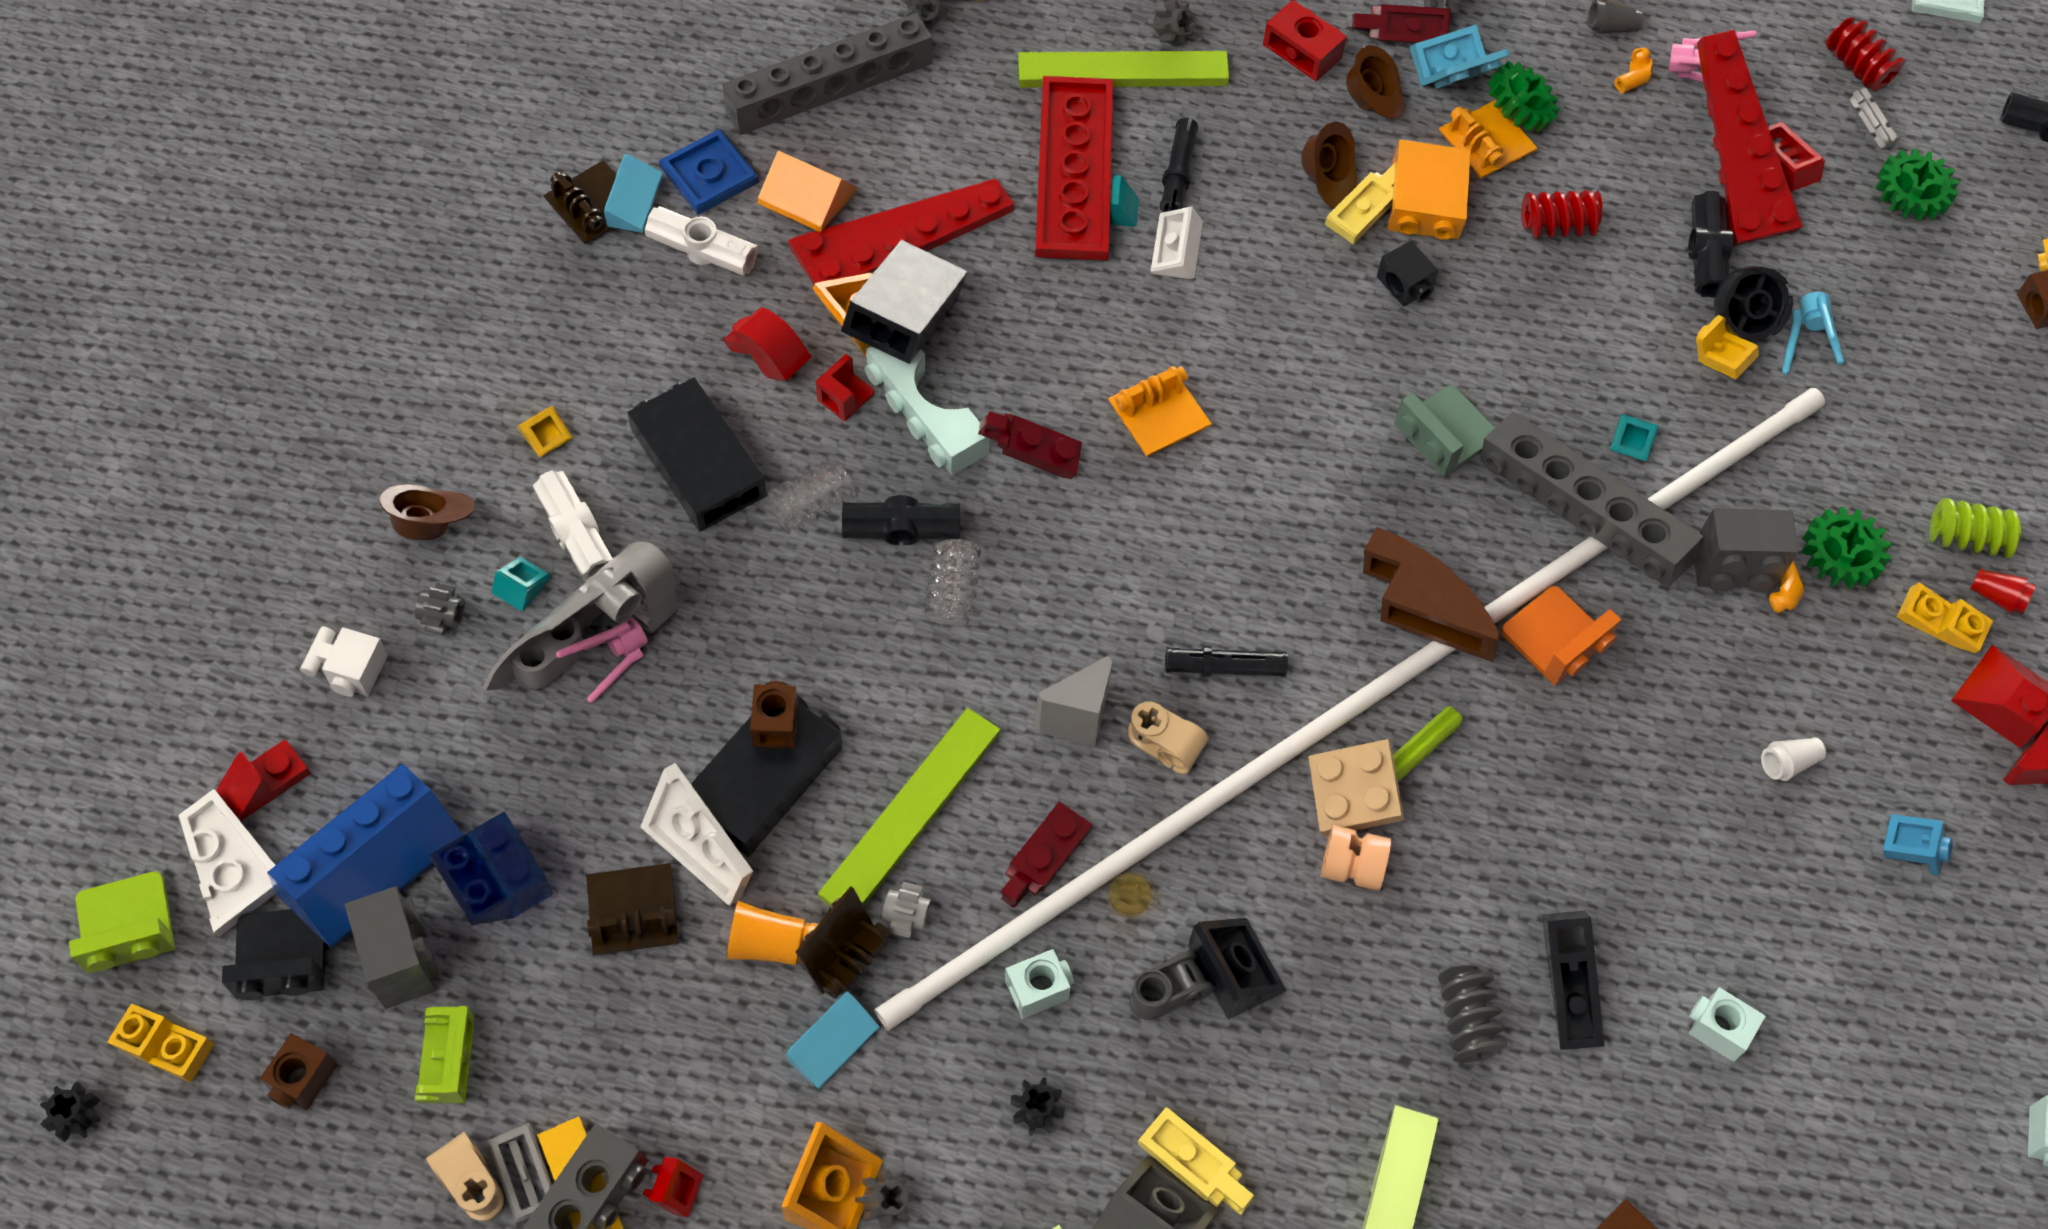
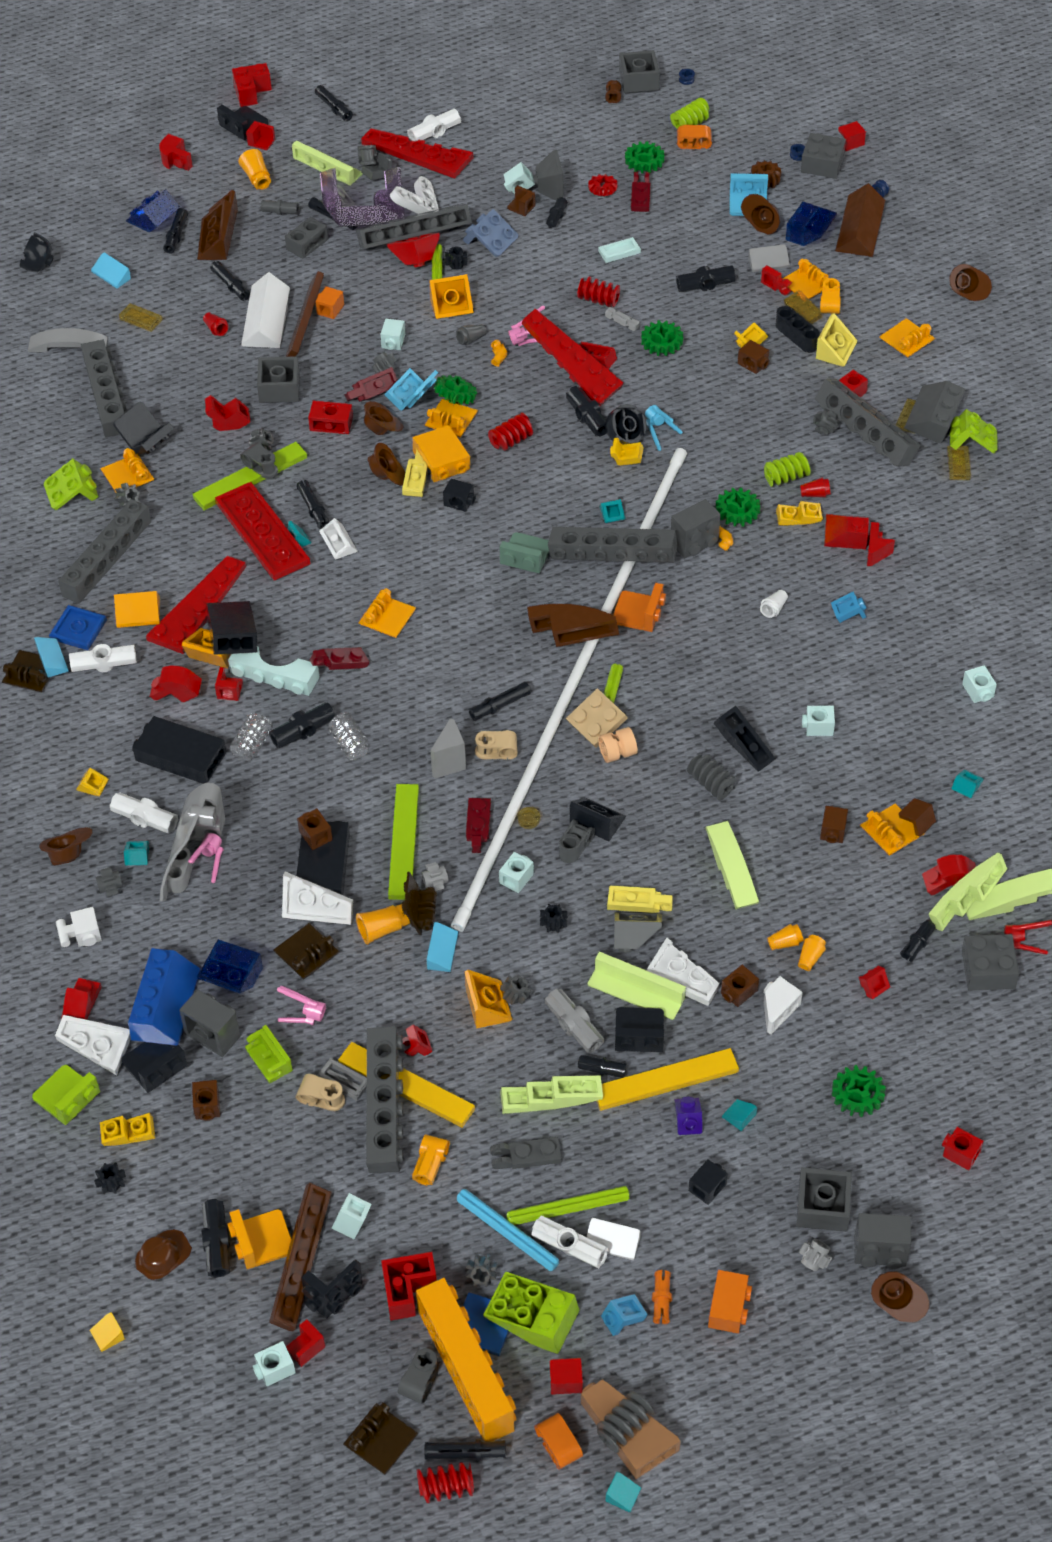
camera: 30 degrees left, 10 degrees down
(564, 1020) = (312, 1009): none -> bright pink plant
(1148, 54) = (260, 460): none -> dark grey piece

